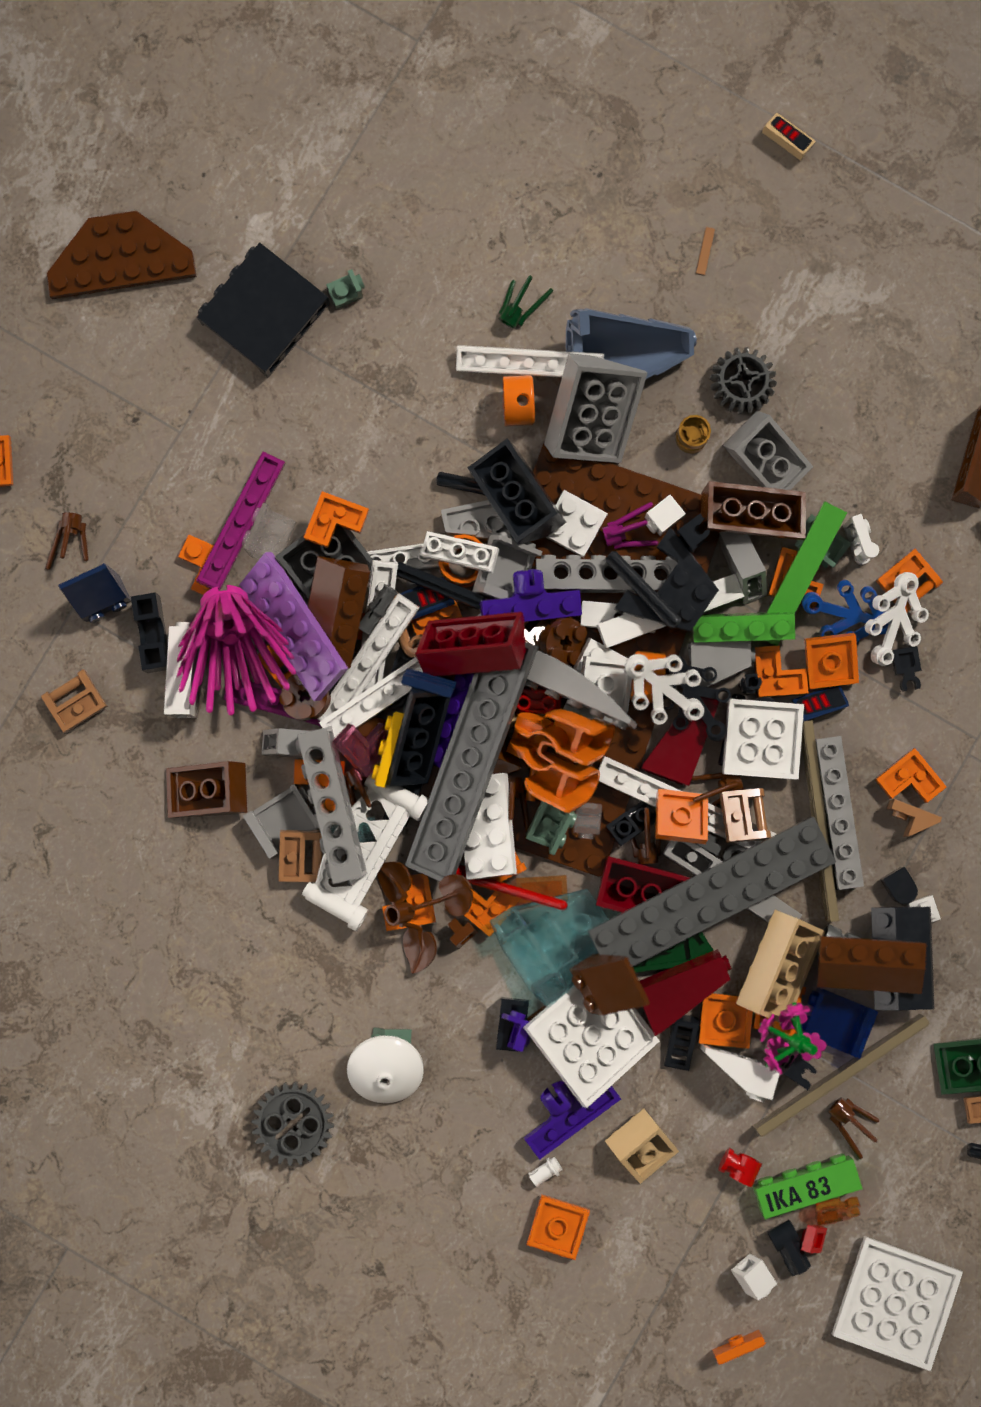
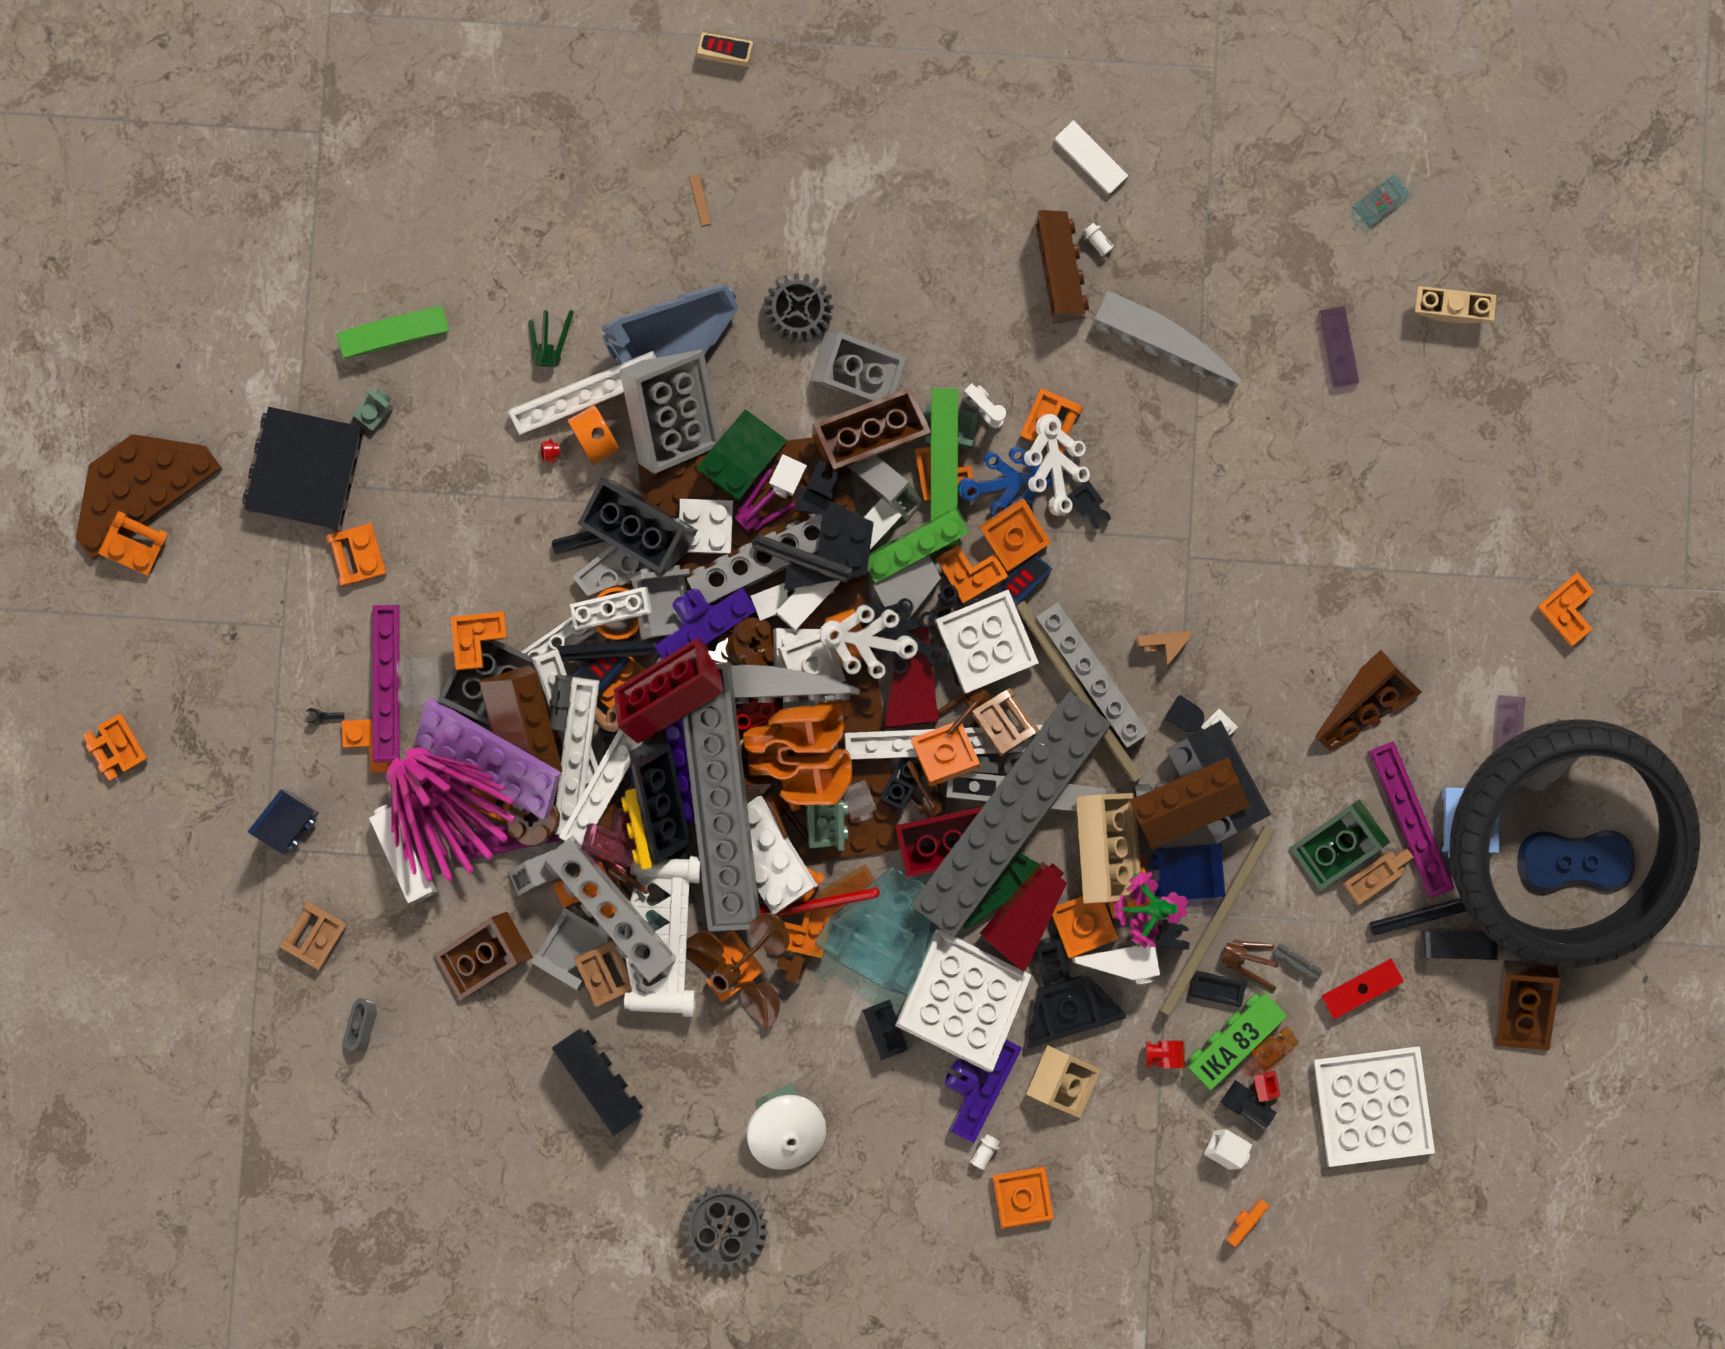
camera: 30 degrees left, 0 degrees up
(69, 526) = (223, 770): reddish brown plant -> none
(74, 796) = (360, 1025): none -> dark grey plate
(83, 304) = (128, 551): none -> orange plate
(152, 631) = (355, 832): black arch -> none
(174, 522) = (324, 715): none -> black hand
(248, 945) = (597, 1081): none -> black slope
(279, 403) = (365, 553): none -> orange plate
(393, 232) = (392, 332): none -> bright green slope
(428, 683) = (644, 748): dark blue tile -> none
(474, 396) = (549, 451): none -> red plate
(519, 1037) = (896, 1036): dark purple bracket -> none
(608, 984) = (953, 945): reddish brown slope -> none
(633, 479) = (741, 456): none -> dark green slope
(677, 1087) = (1070, 1009): none -> black wing
(693, 434) = (776, 384): pearl gold wheel -> none
(812, 1133) = (1217, 988): none -> black tile
(892, 1145) = (1297, 962): none -> dark grey axle
(912, 771) = (1144, 600): orange plate -> none
(952, 1196) = (1376, 980): none -> red tile

